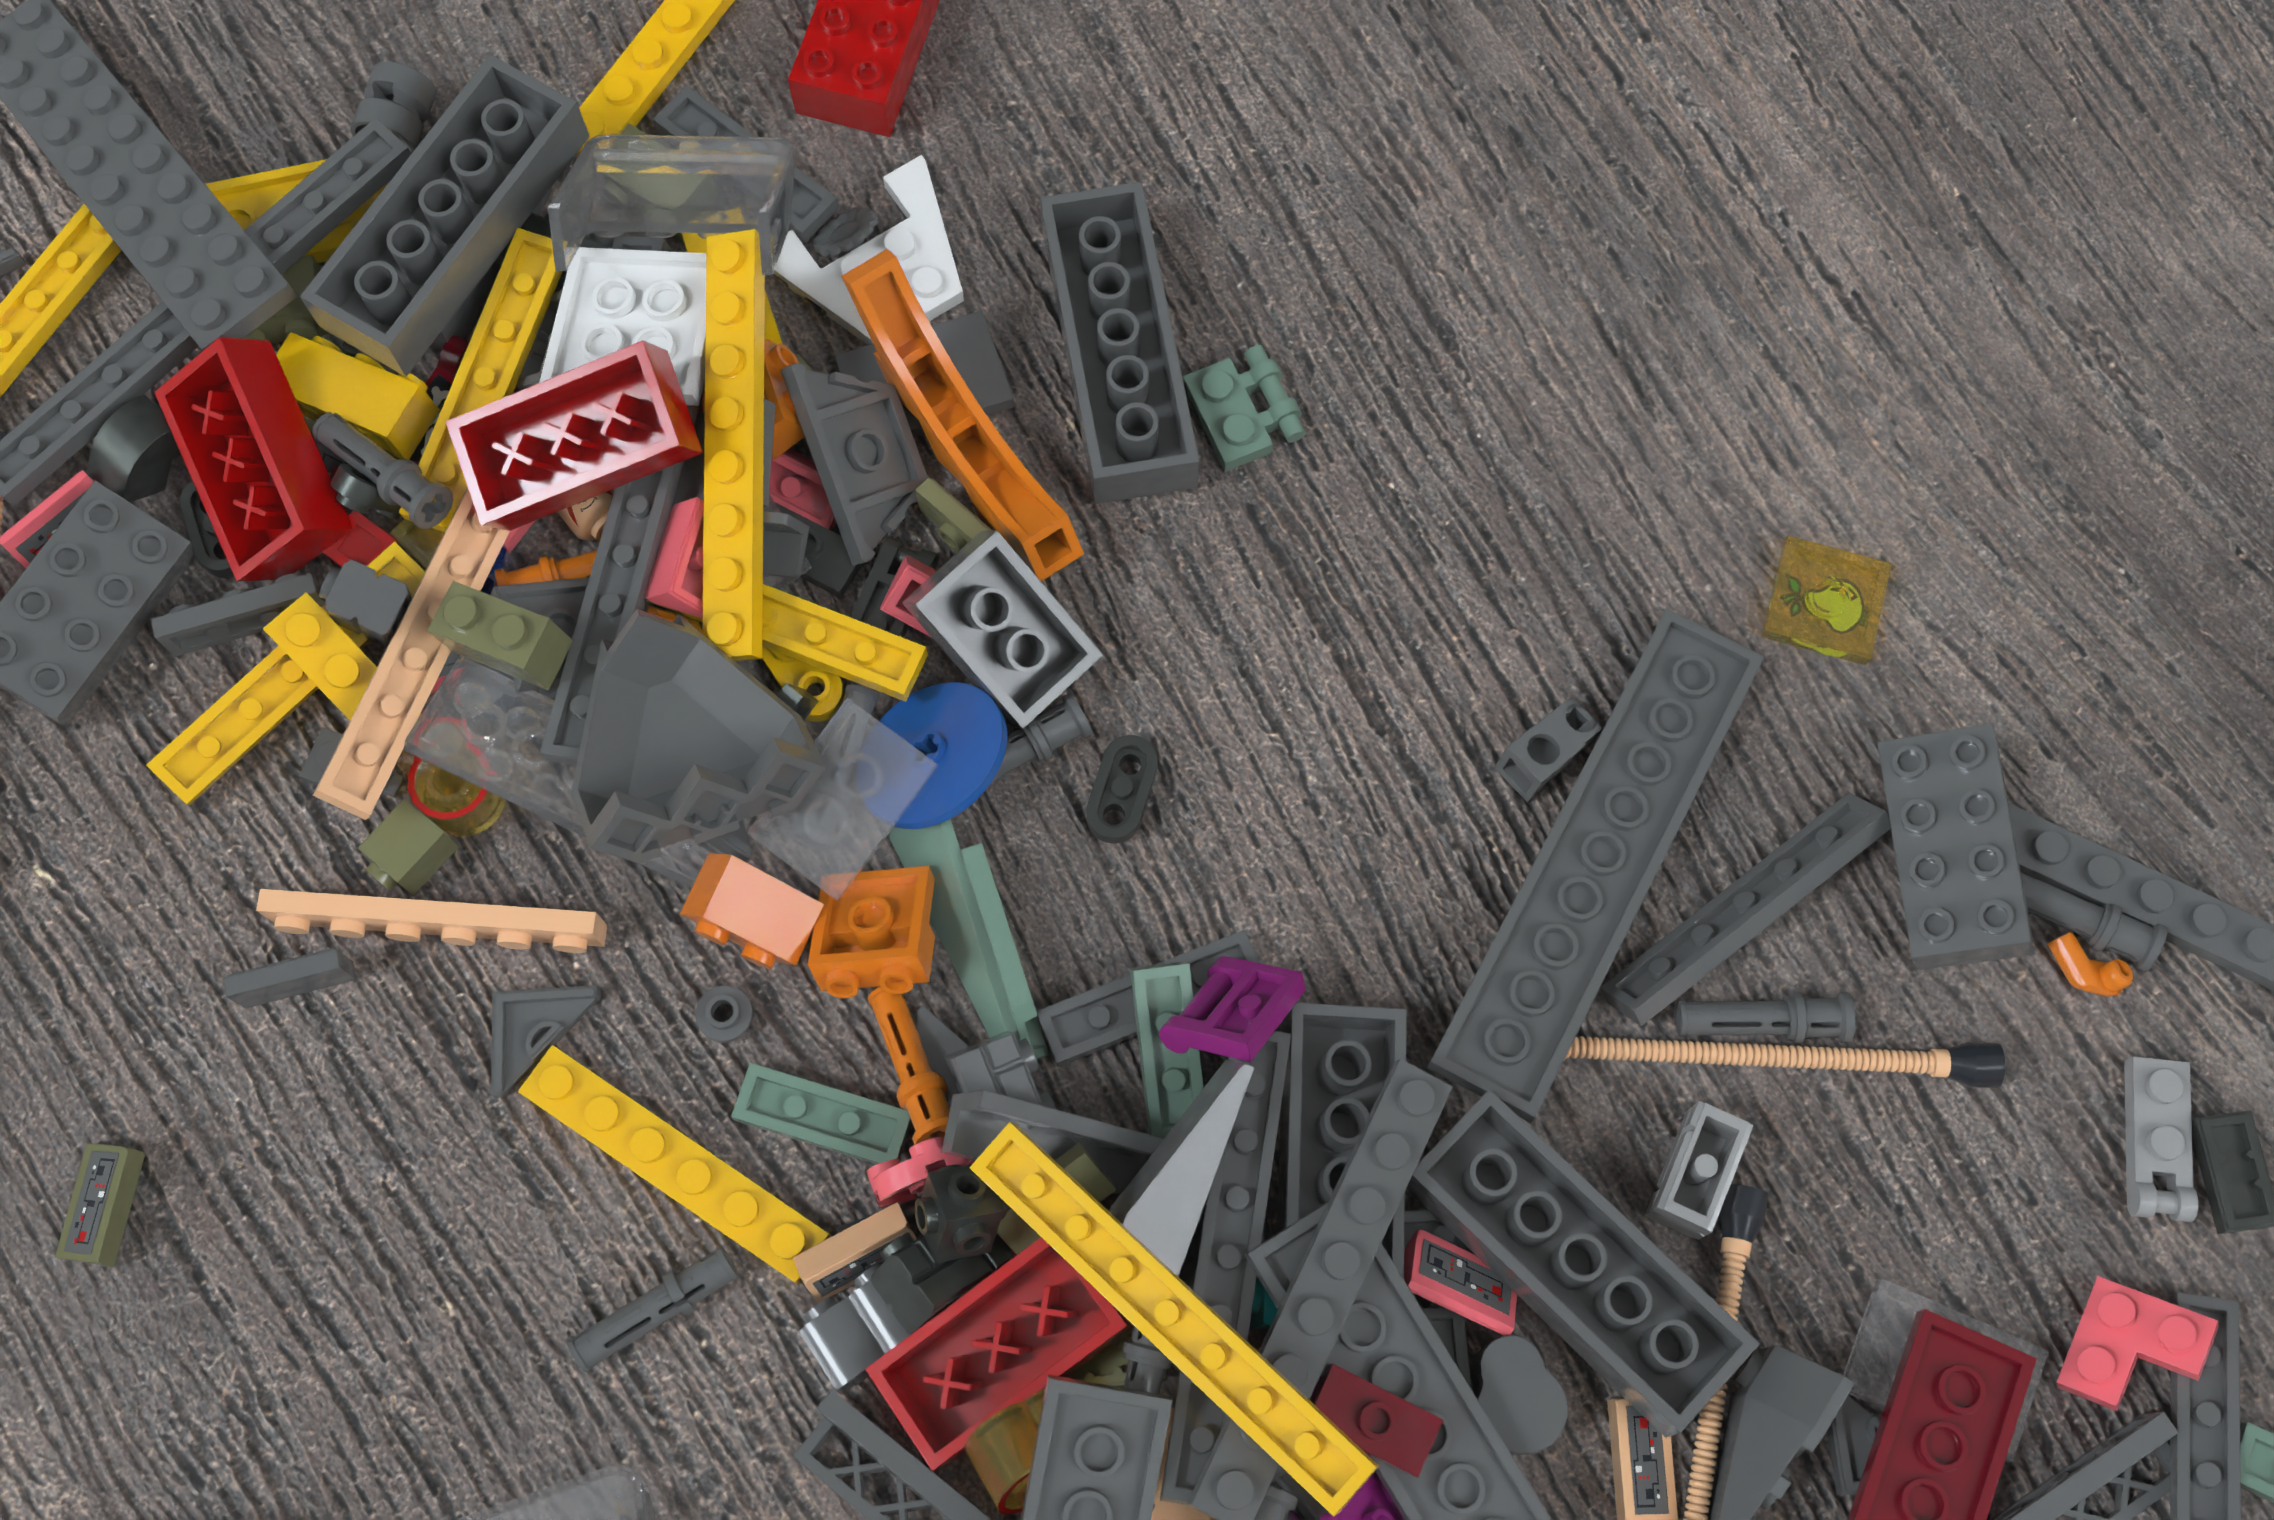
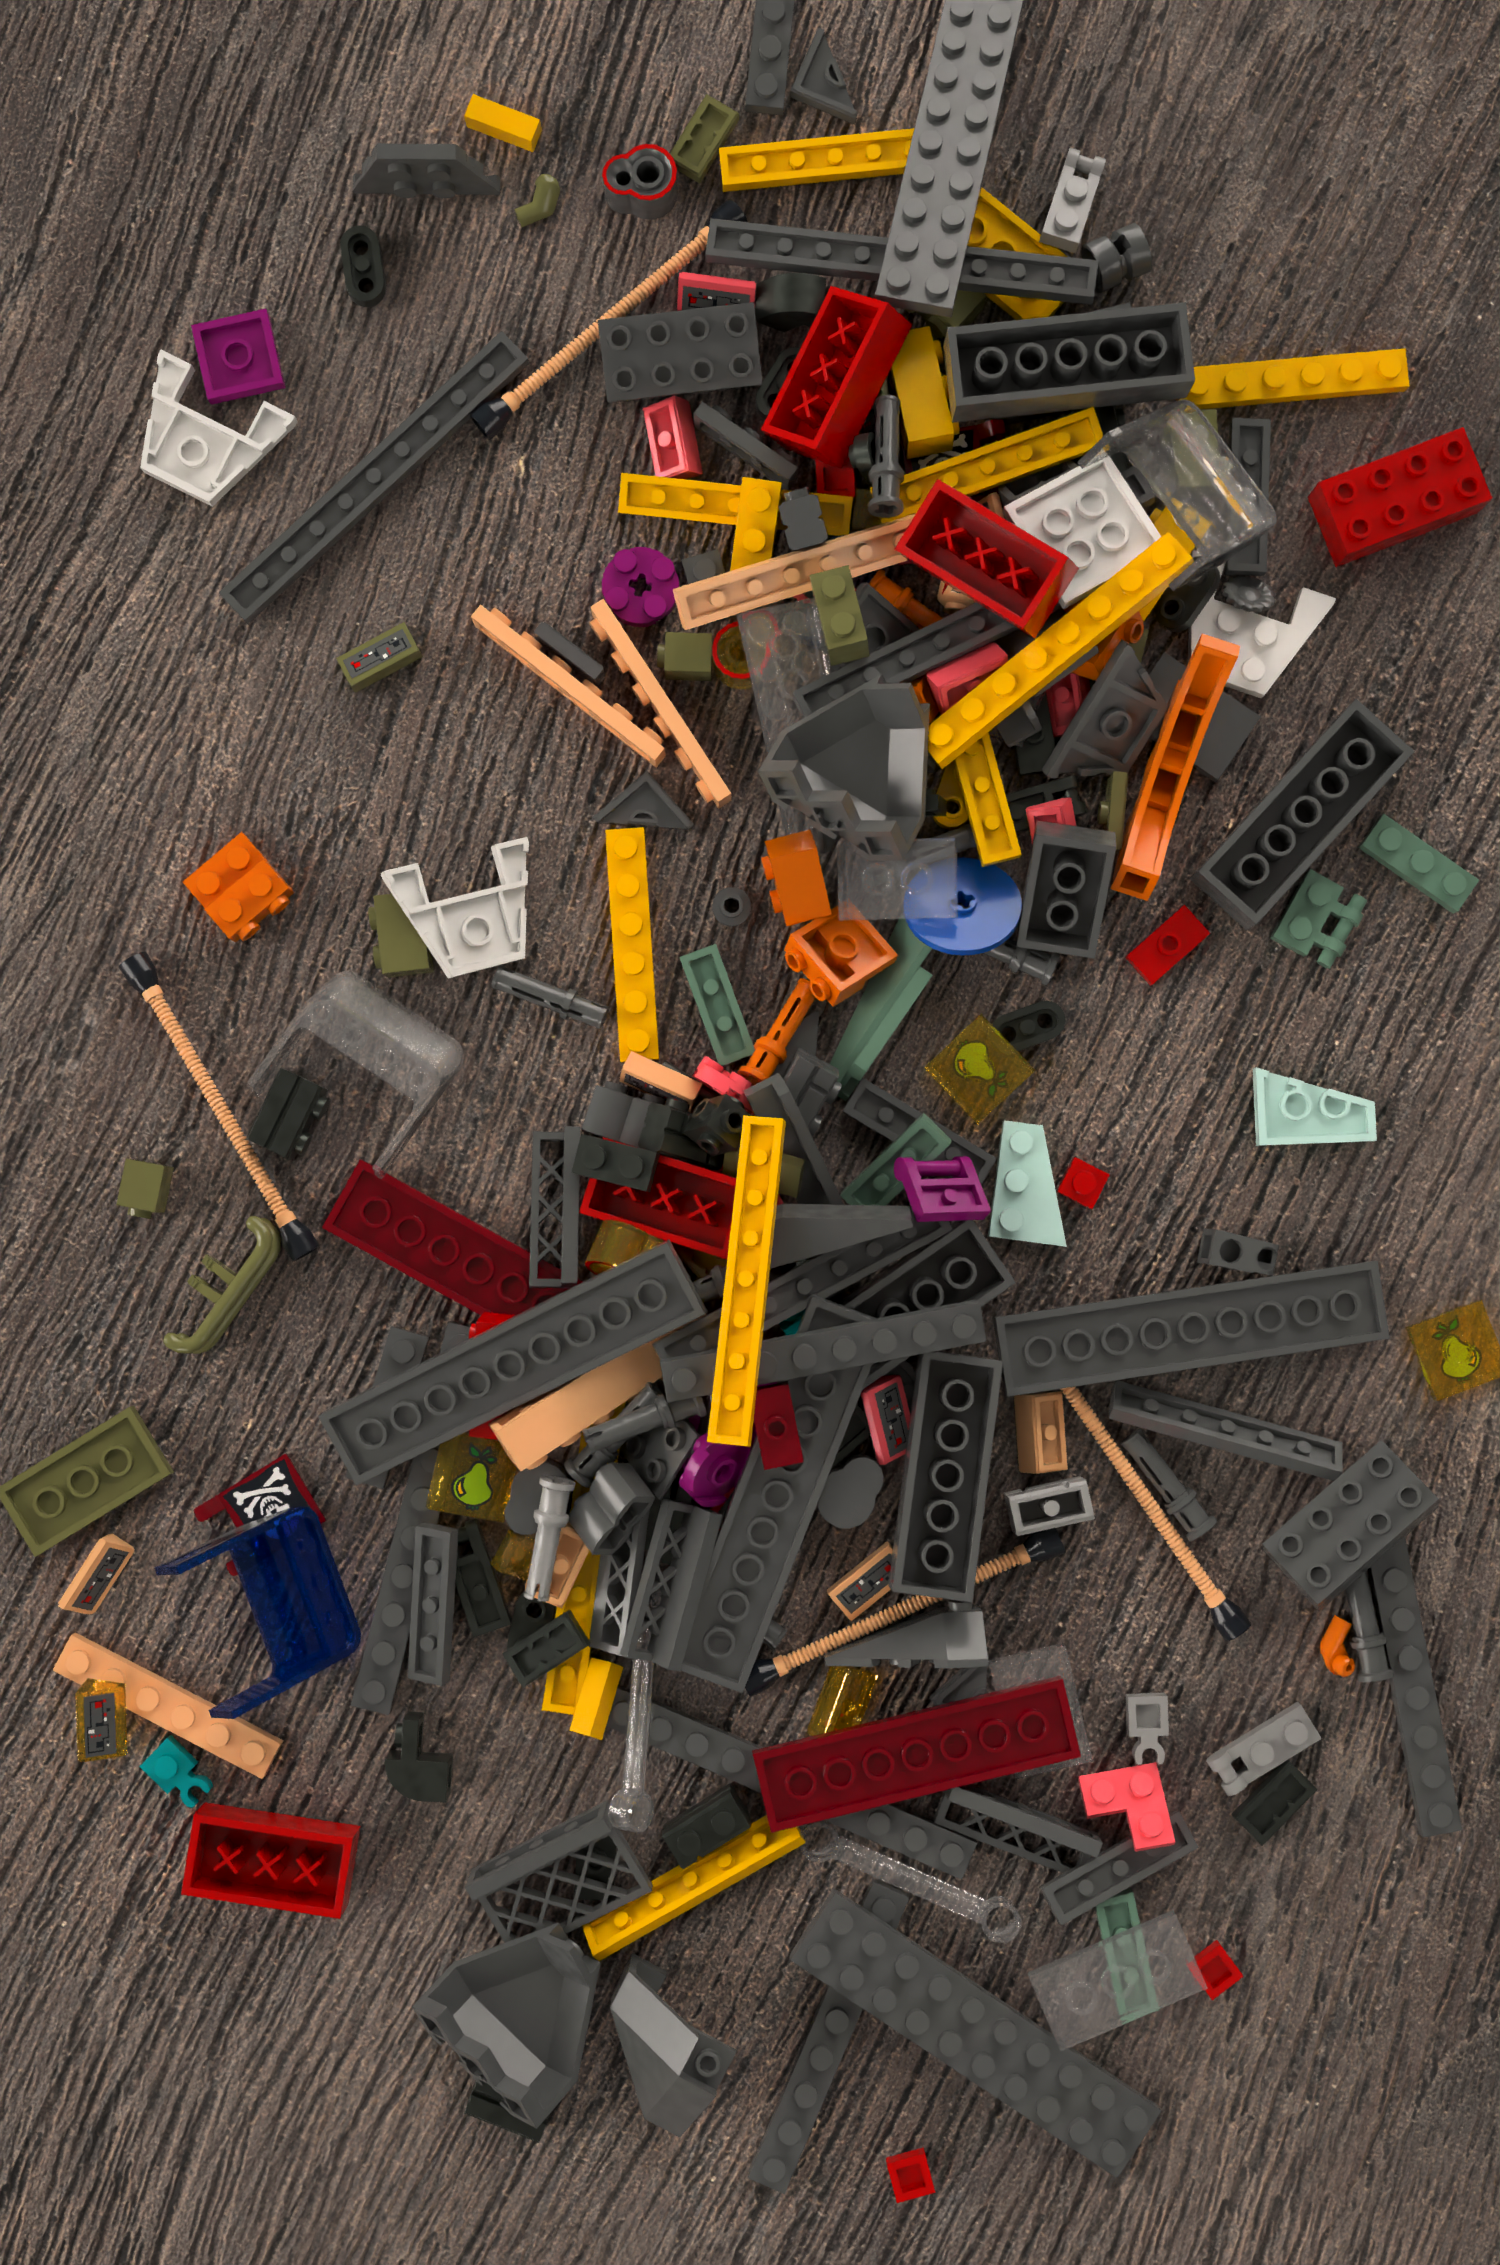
camera: 50 degrees right, 15 degrees up
(162, 685) = (672, 439): none -> coral slope
(271, 816) = (628, 568): none -> magenta plate
(298, 111) = (1072, 201): none -> light grey plate
(303, 1010) = (557, 674): none -> light nougat plate
(432, 1433) = (400, 946): none -> olive brick
(494, 1340) = (472, 928): none -> white wing
(796, 285) = (1191, 601): none -> pearl dark grey plate
(907, 1376) = (615, 1163): none -> pearl dark grey plate
(1128, 874) = (979, 1068): none -> clear yellow tile
(1149, 578) = (1167, 945): none -> red plate
(1262, 271) = (1418, 863): none -> sand green plate
(1303, 926) = (1024, 1188): none -> light aqua wing
(1345, 859) = (1082, 1183): none -> red plate
(1448, 566) = (1304, 1113): none -> light aqua wing
(1602, 1119) = (1040, 1432): none -> light nougat slope
(2039, 1250) = (1147, 1720): none -> light grey plate

